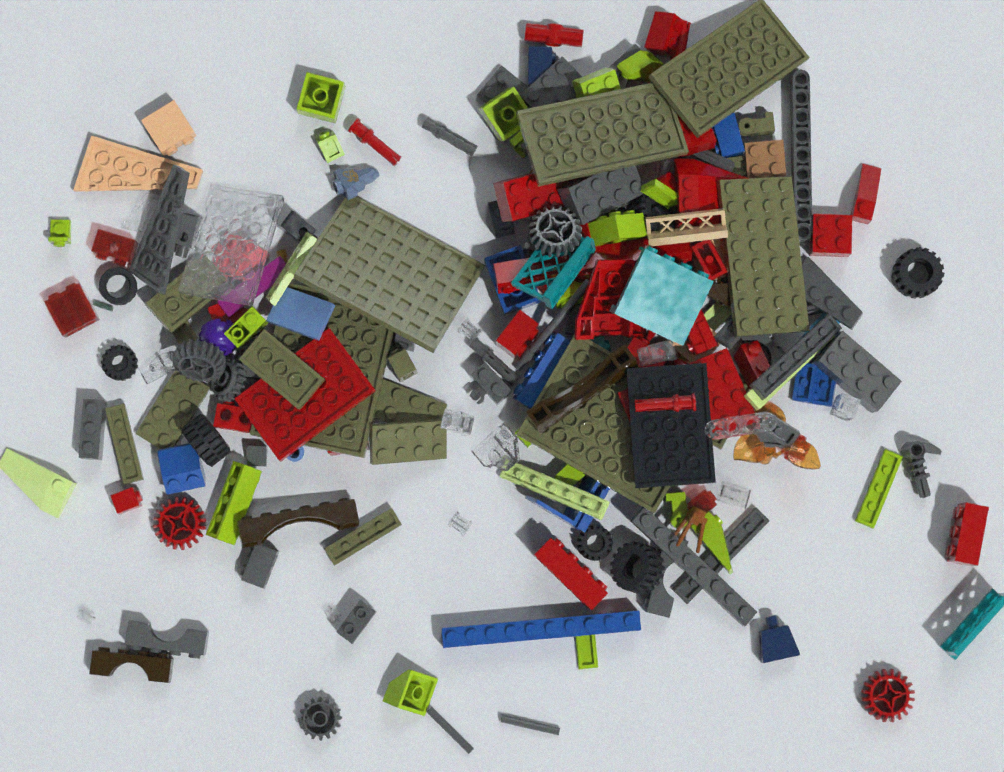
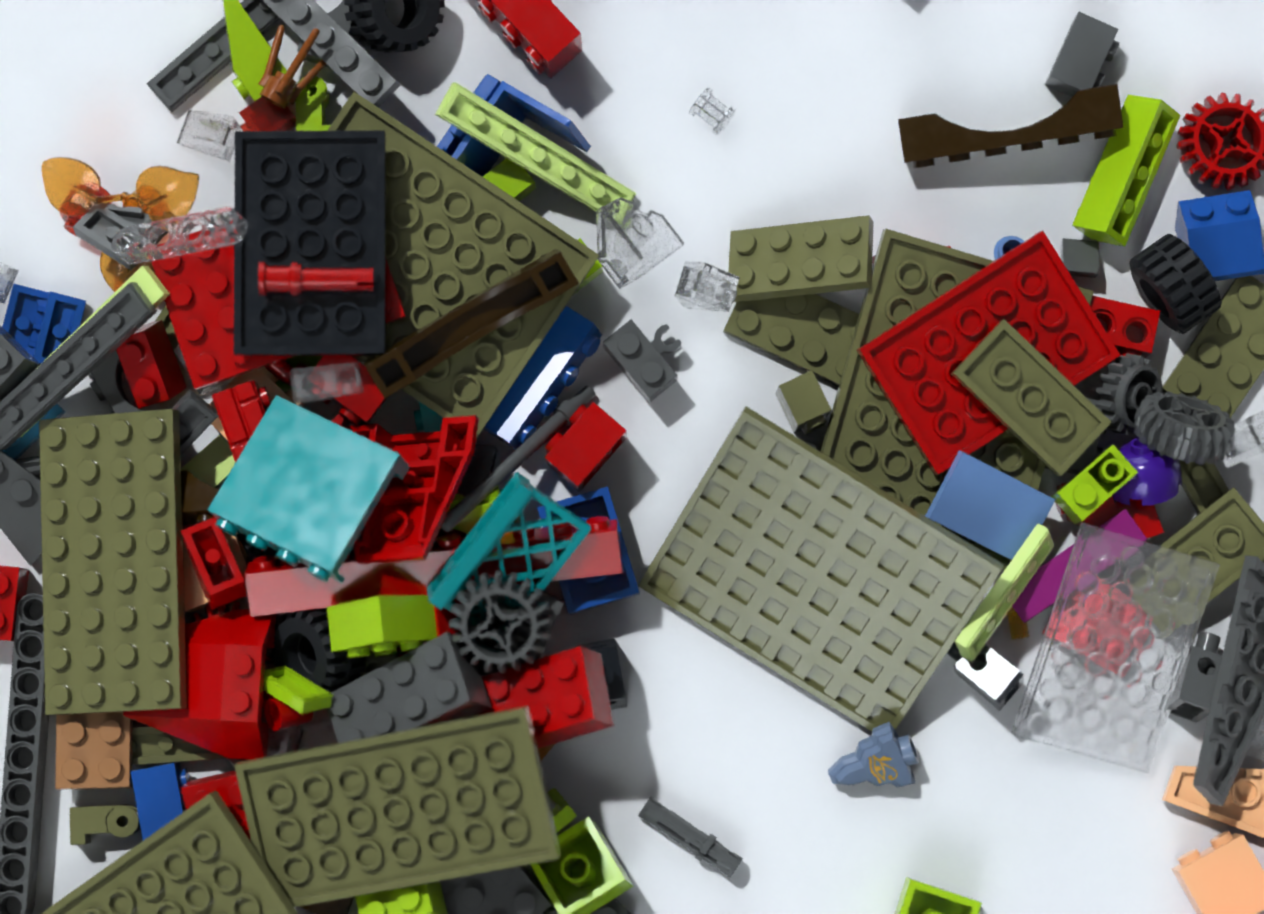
camera: 170 degrees left, 0 degrees up
(329, 145) = (920, 832): lime bracket -> none
(363, 536) = (890, 98): olive plate -> none
(367, 136) = (846, 846): red pin -> none
(469, 330) = (674, 464): clear bush -> none
(497, 364) = (662, 434): dark grey pin -> none
(606, 539) = (467, 41): black tyre -> none
(689, 233) = (251, 608): tan fence -> none
(716, 160) = (185, 756): dark grey axle -> none

